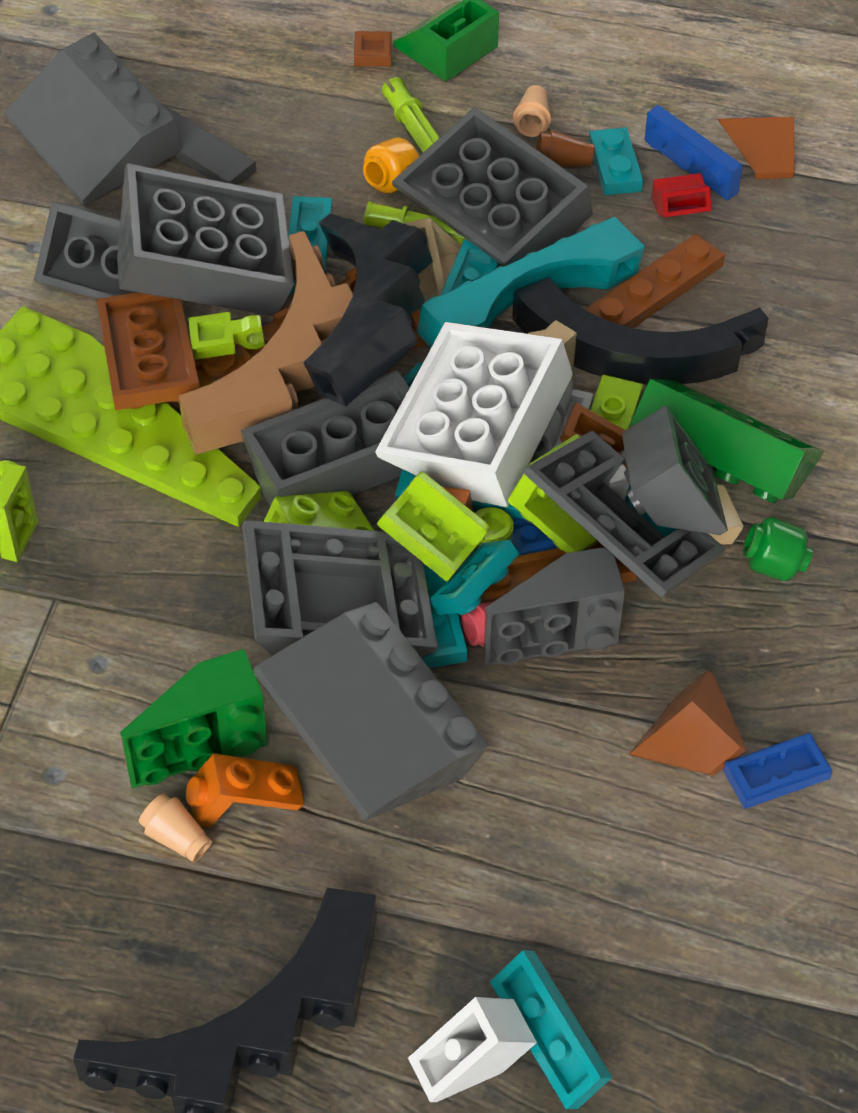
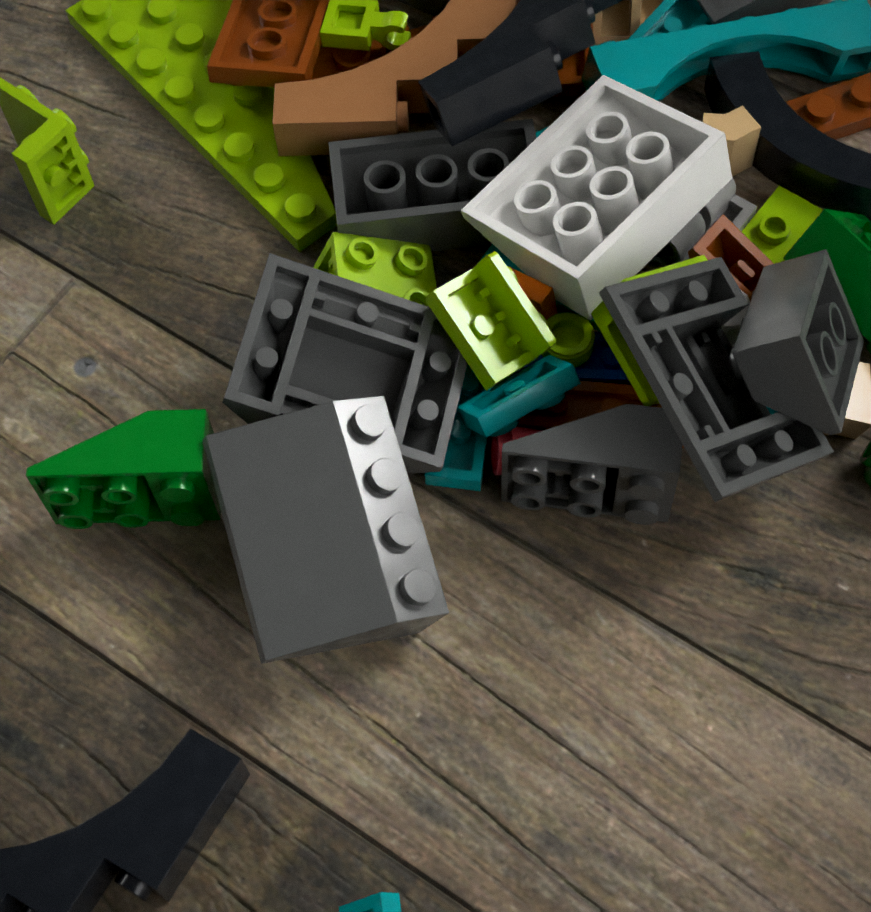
camera: 25 degrees right, 10 degrees up
(174, 827) = (71, 590): light nougat cone -> none
(241, 780) = (165, 564): orange bracket -> none
(694, 731) = (711, 667): dark orange slope -> none
(777, 770) = (794, 754): blue plate -> none

